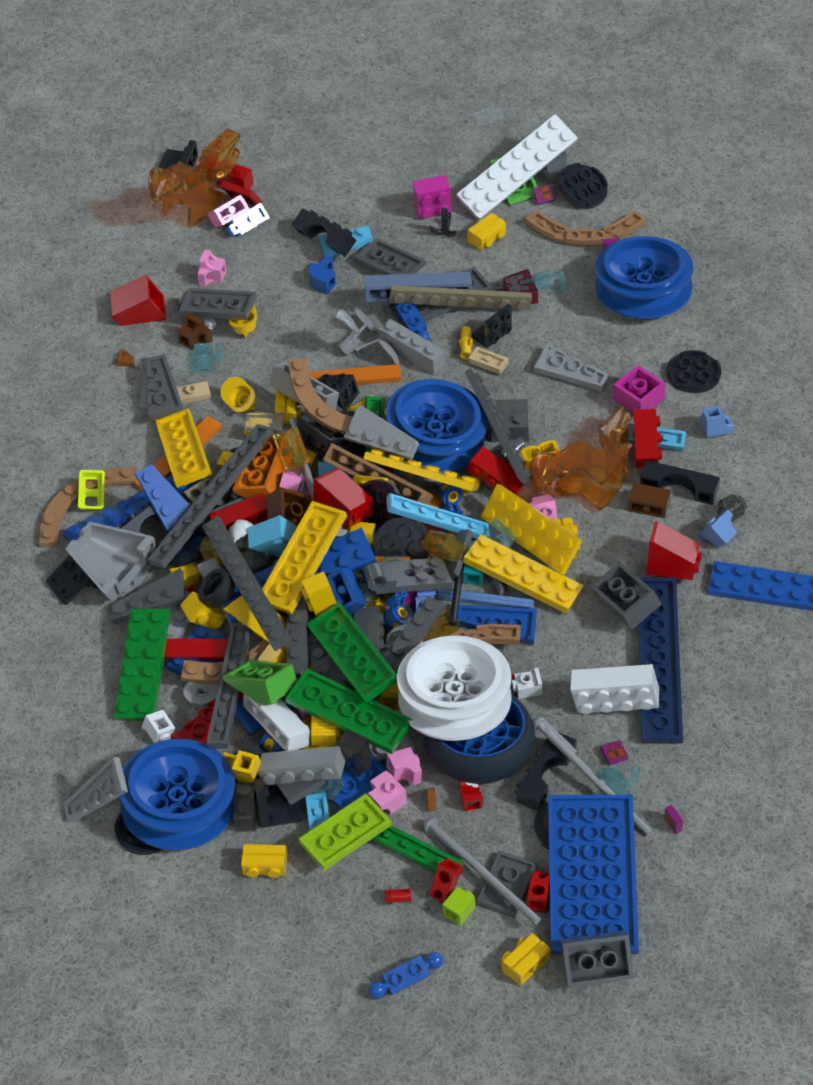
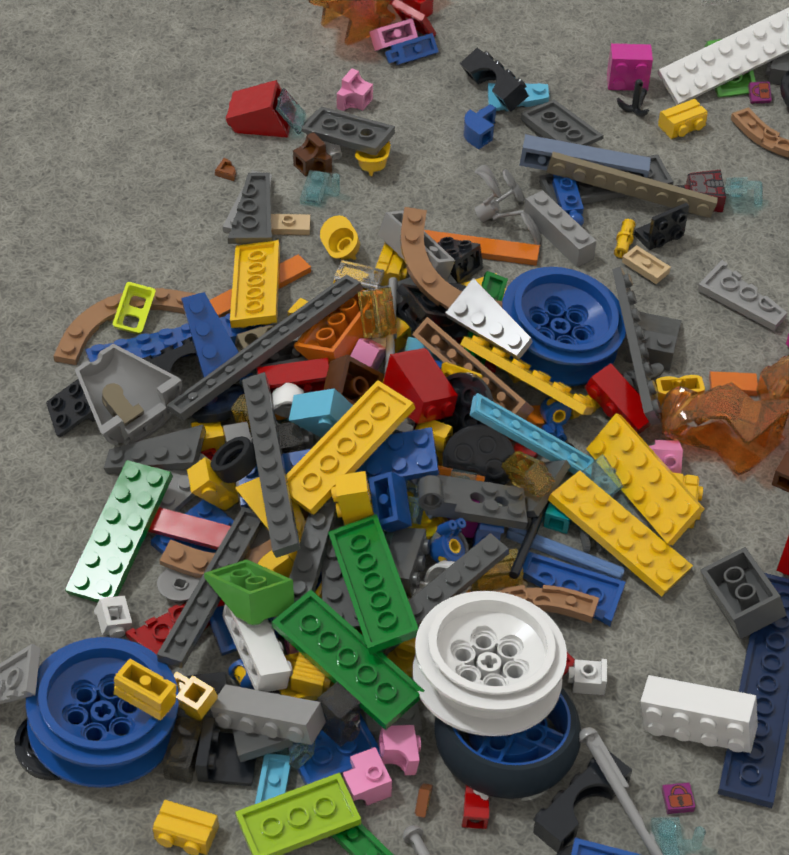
camera: 10 degrees right, 0 degrees up
(107, 568) = (118, 405): none -> dark tan leg
(164, 297) = (291, 111): none -> clear light blue piece
(209, 767) = (145, 689): none -> yellow brick
(588, 436) = (745, 381): none -> orange tile

